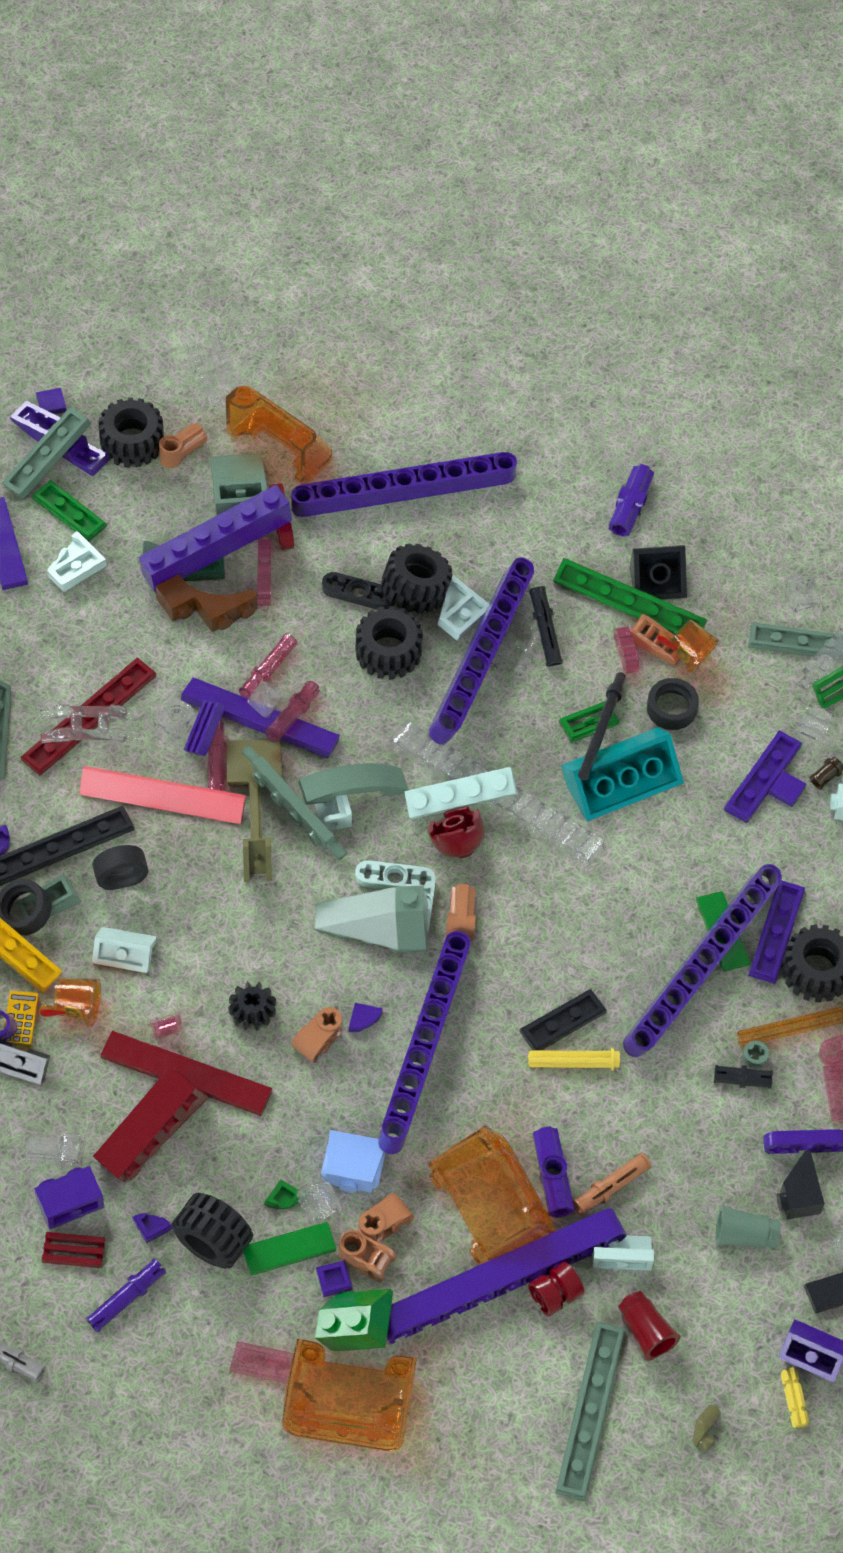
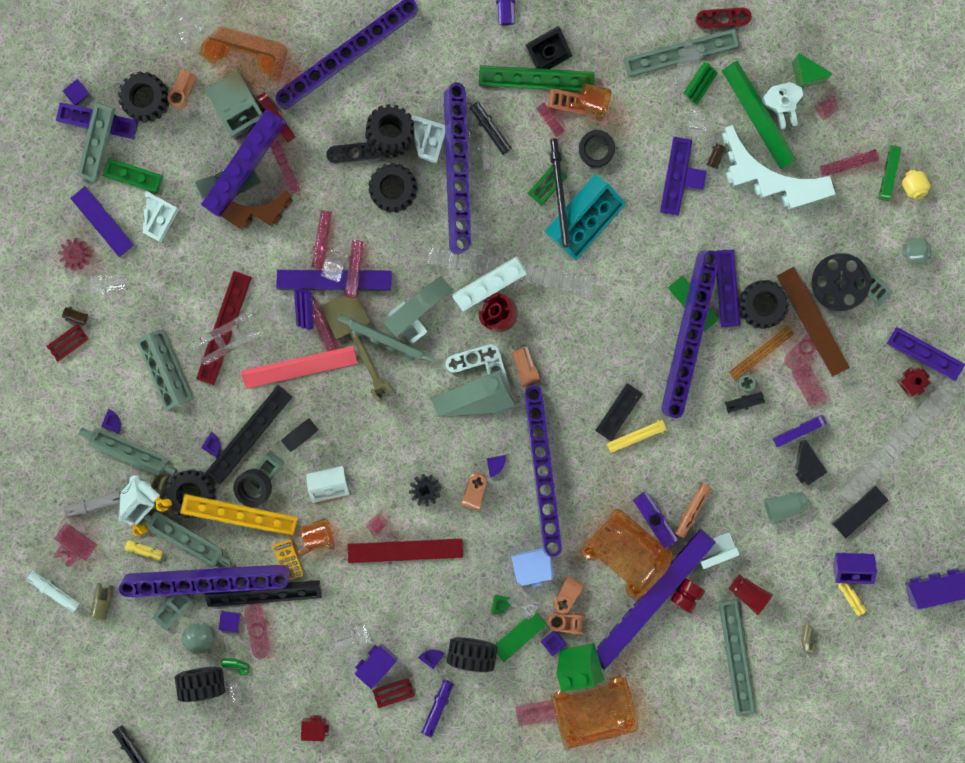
camera: 25 degrees left, 30 degrees up
(150, 1124) = (402, 599): dark red wedge -> none

